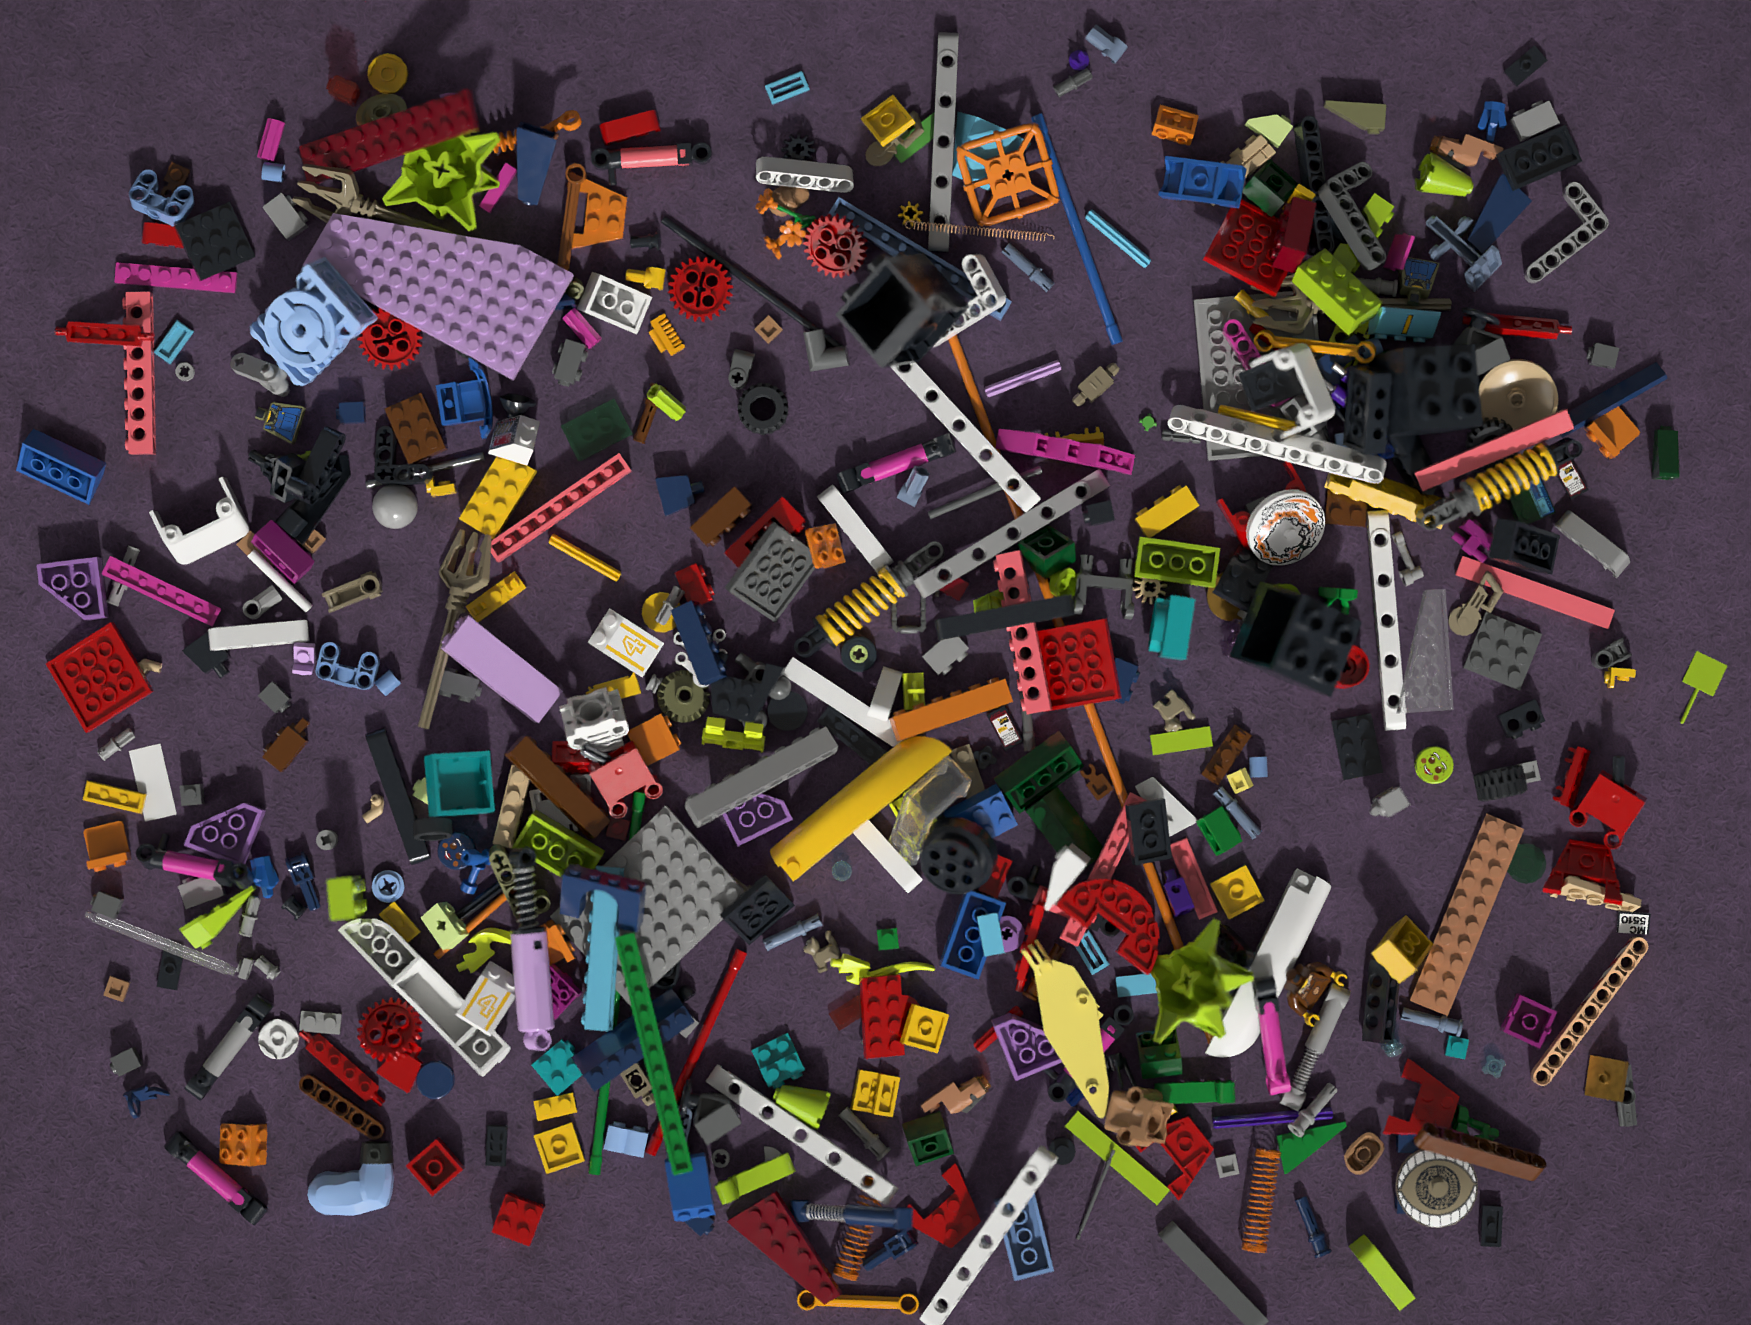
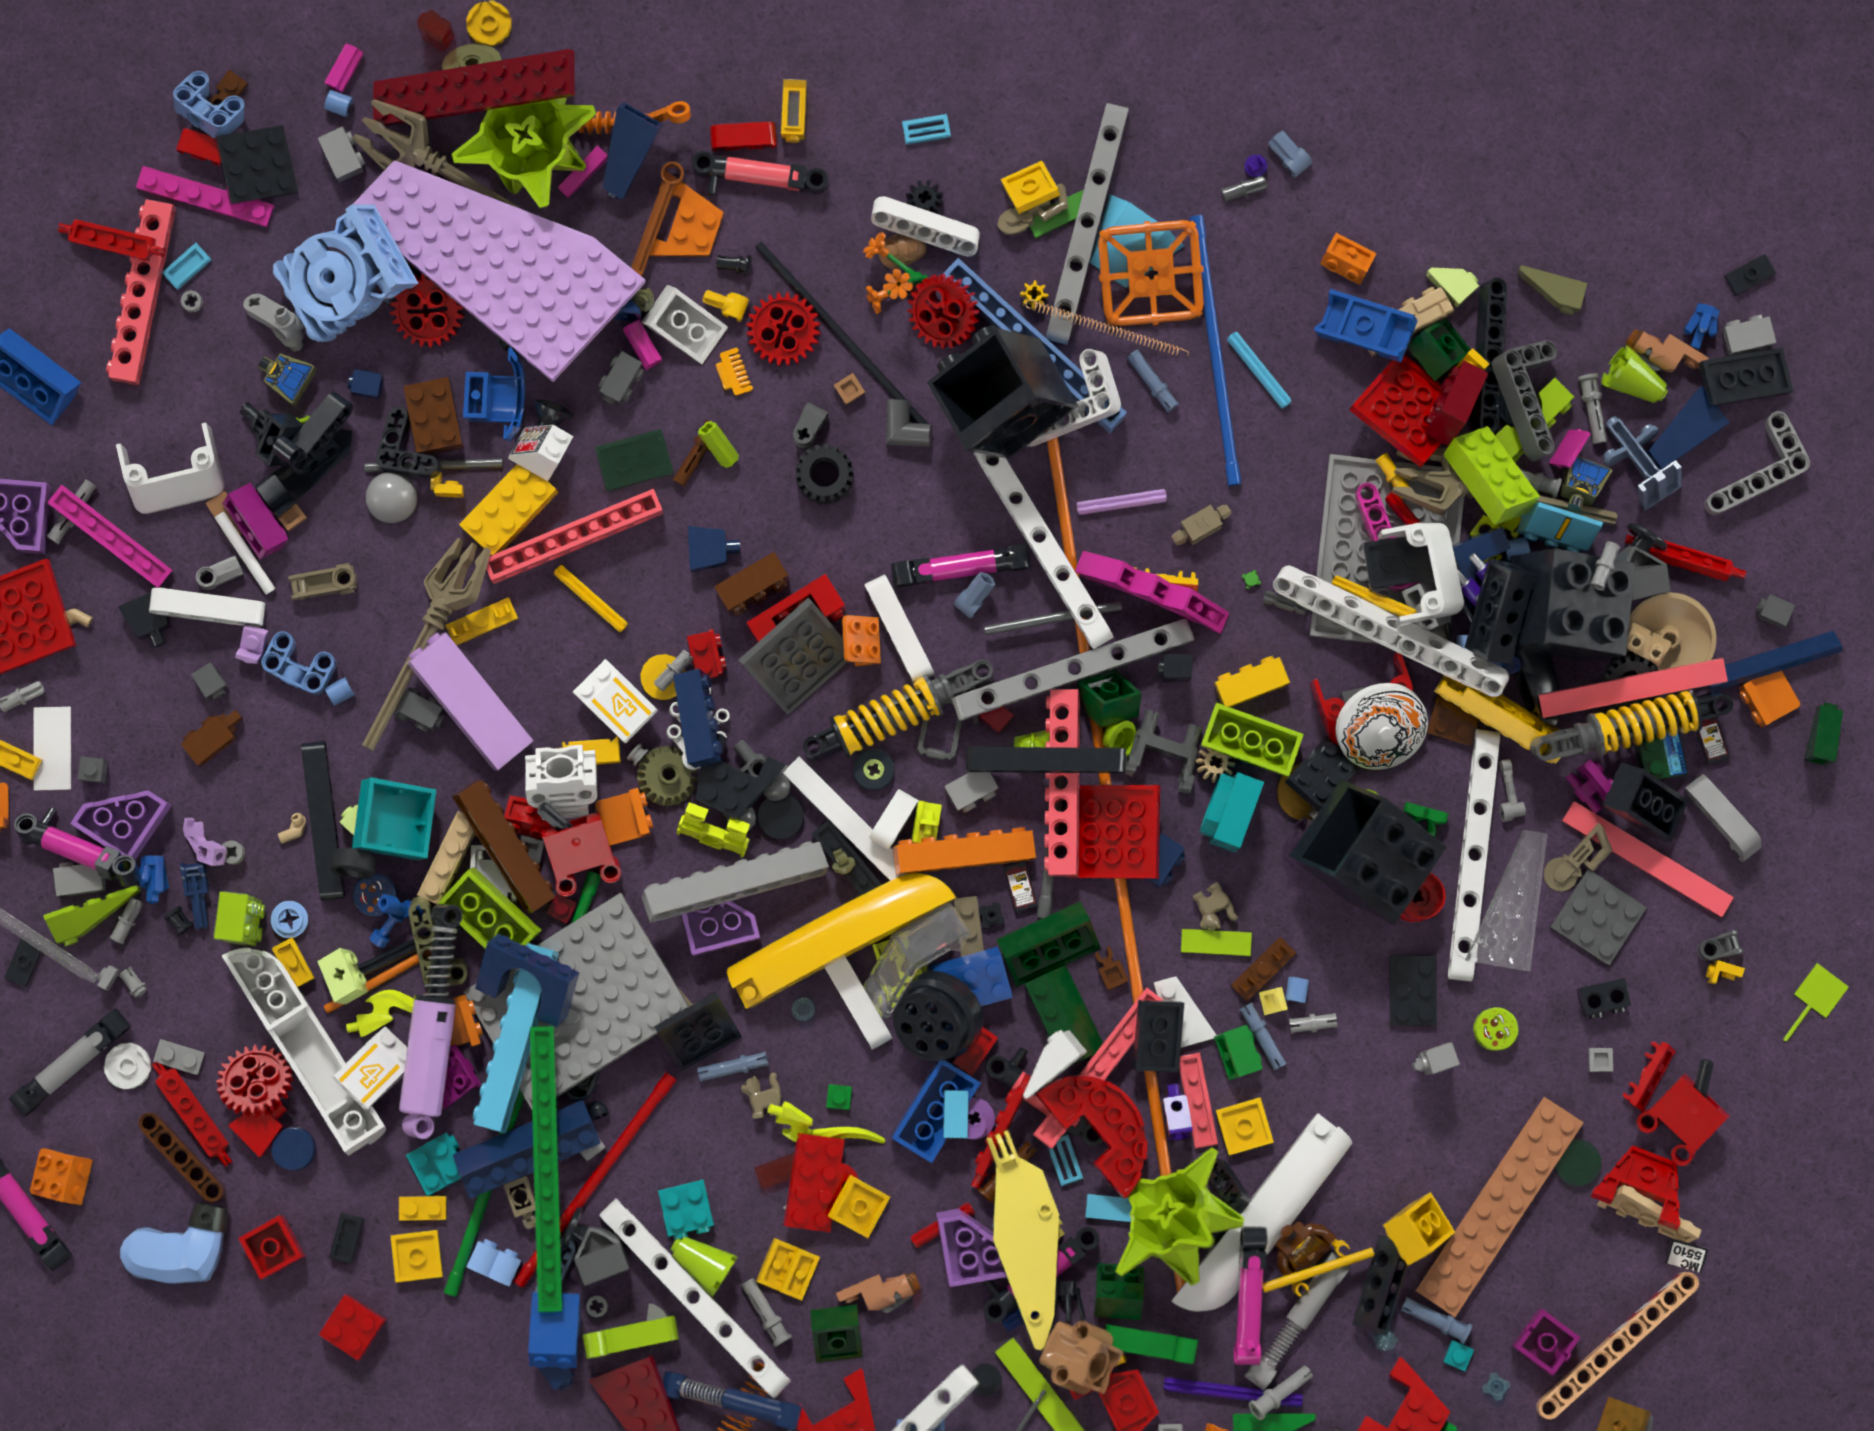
camera: 10 degrees right, 5 degrees down
(305, 844) = (206, 851): none -> lavender piece
(668, 95) = (793, 110): none -> yellow window
(850, 741) = (843, 863): none -> olive plate
(1277, 792) = (1313, 1023): none -> light grey pin
(1316, 346) = (1458, 531): light orange piece -> none
(1324, 1001) = (1317, 1270): none -> yellow piece
(1409, 202) = (1591, 396): none -> light grey pin
(1449, 353) = (1605, 565): none -> light grey pin
(1500, 783) = (1567, 1064): black tyre -> none
(1502, 411) = (1648, 646): none -> tan hips

